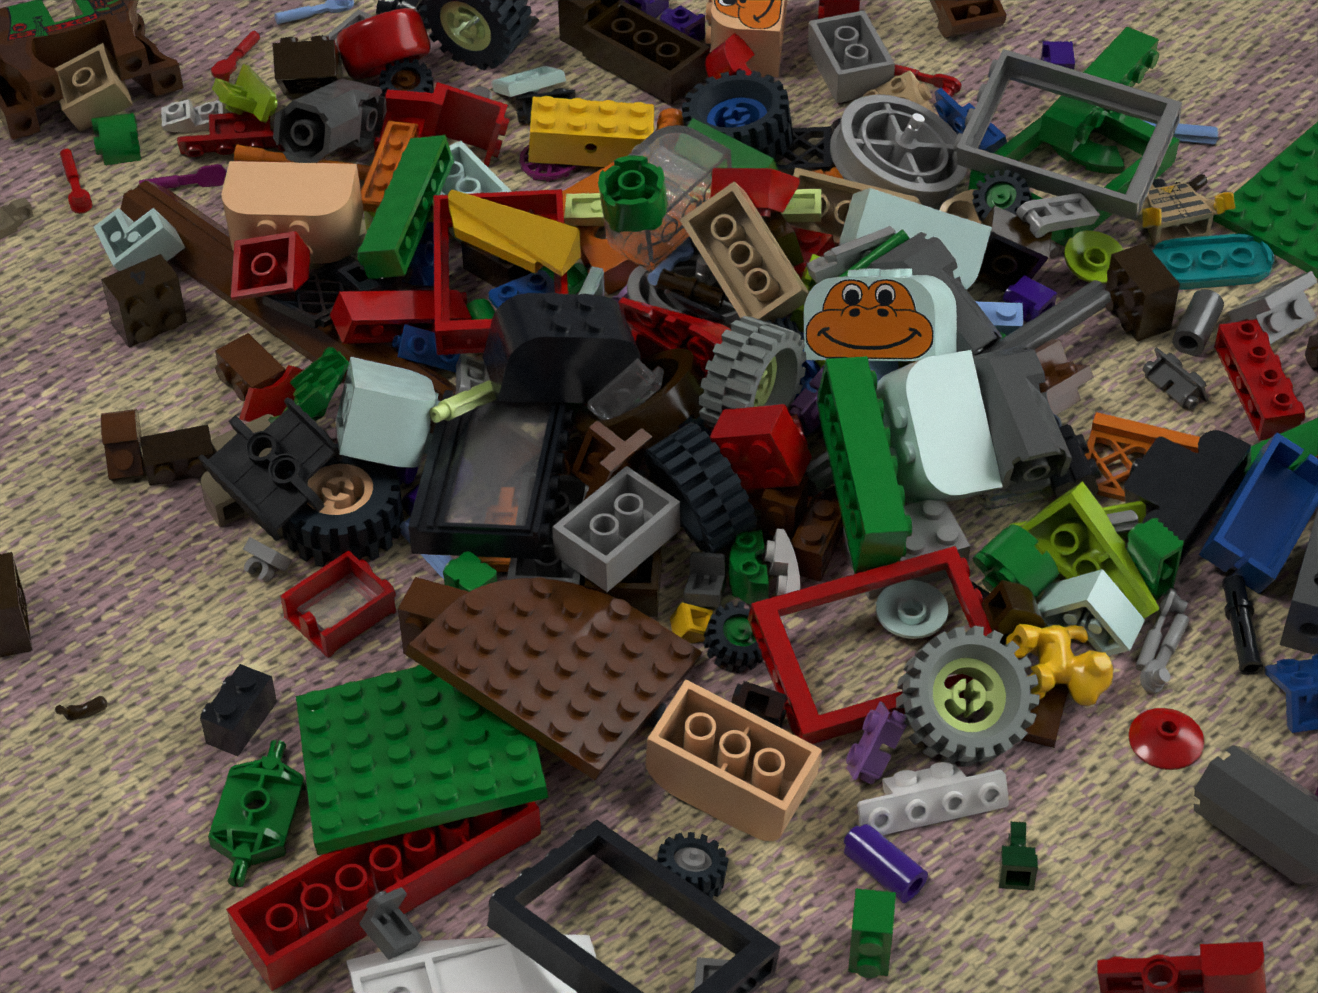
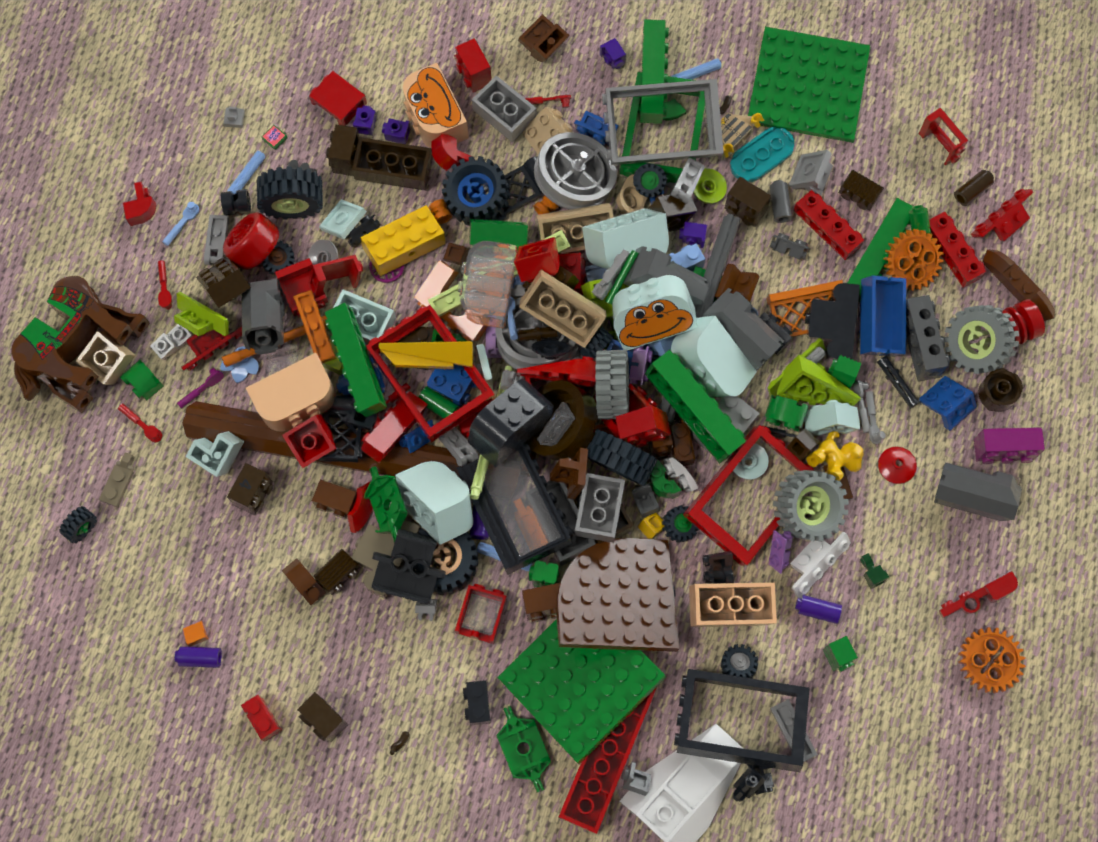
camera: 30 degrees left, 25 degrees up
(633, 194) = (494, 297): green brick -> none

